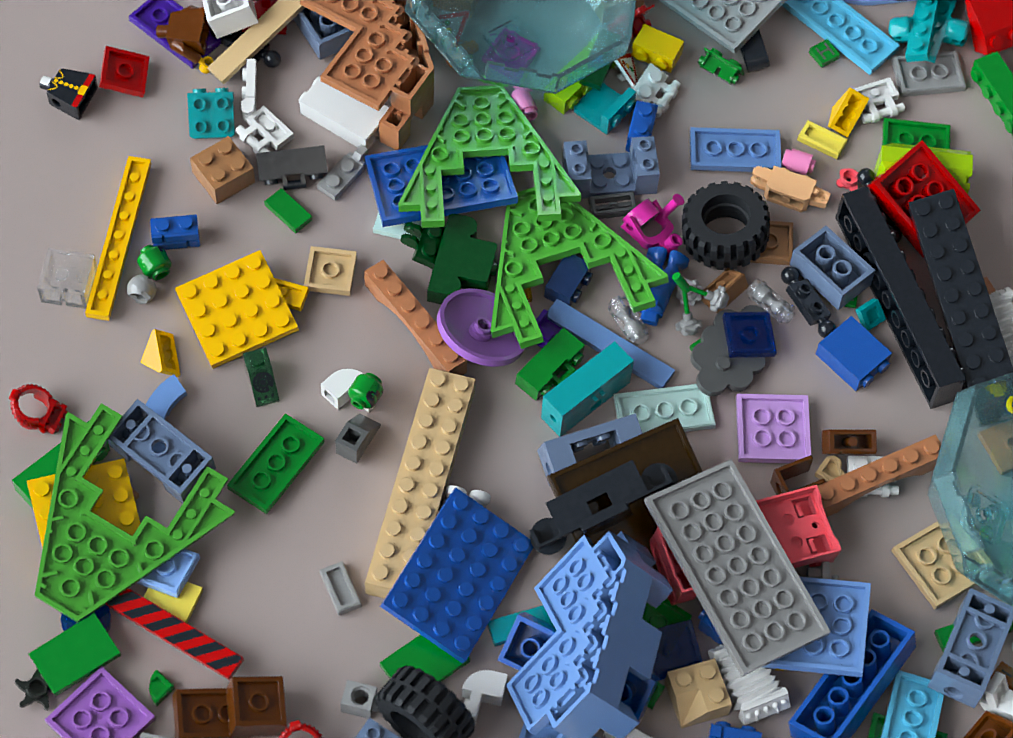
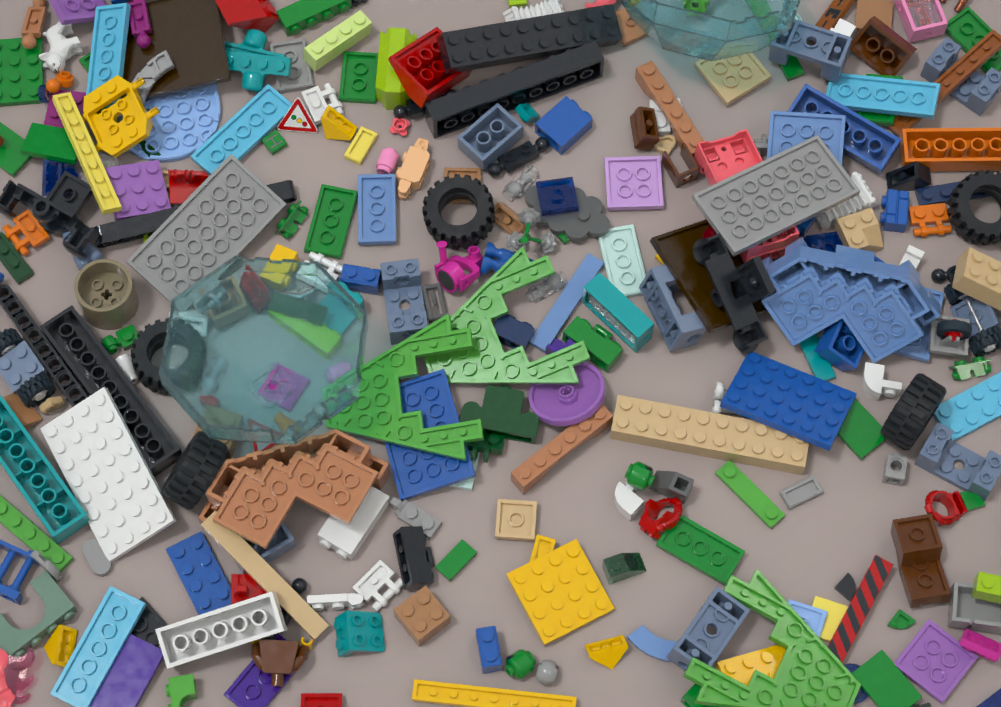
camera: 90 degrees left, 5 degrees up
(211, 626) = (846, 587): none -> black tile
(313, 409) = (668, 519): none -> red piece
(342, 528) = (750, 494): none -> bright green plate
(719, 105) = (331, 221): none -> green tile
(853, 72) = (297, 119): none -> piece
(960, 113) = (337, 40): none -> yellowish green brick

